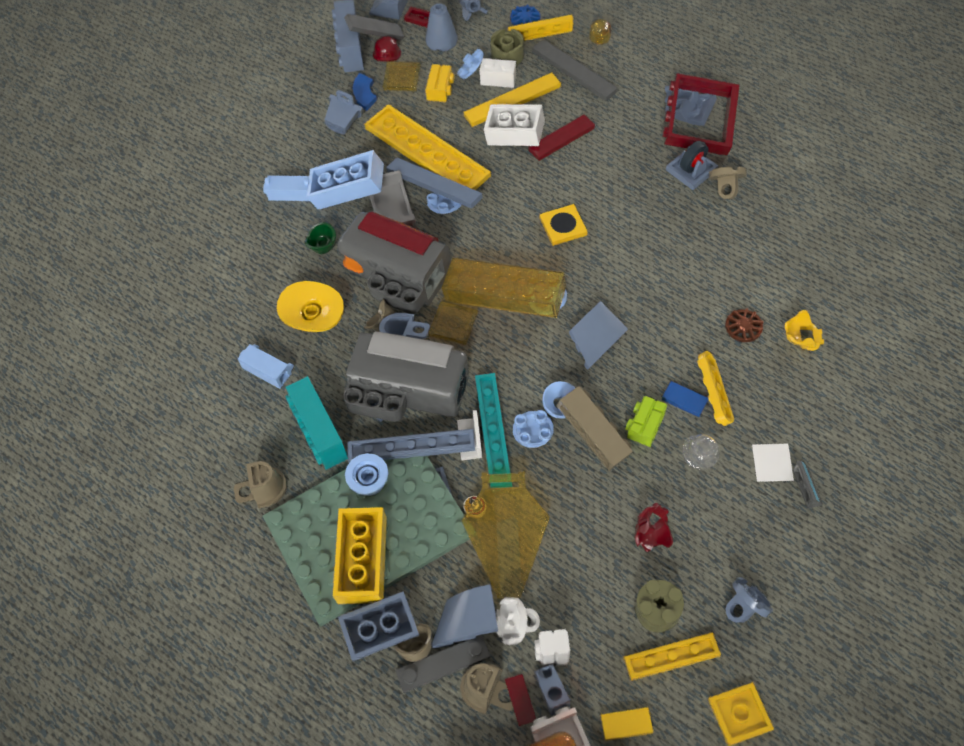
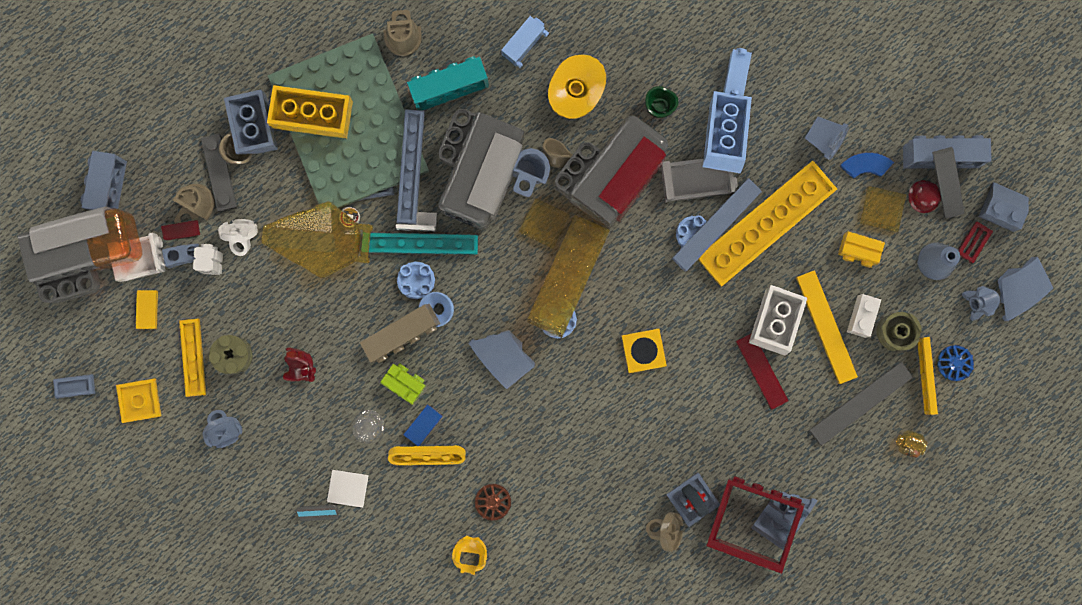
camera: 90 degrees right, 25 degrees up
(366, 474) = (382, 123): light blue piece -> none
(466, 616) = (249, 195): sand blue slope -> none
(471, 64) = (881, 287): light blue dish -> none

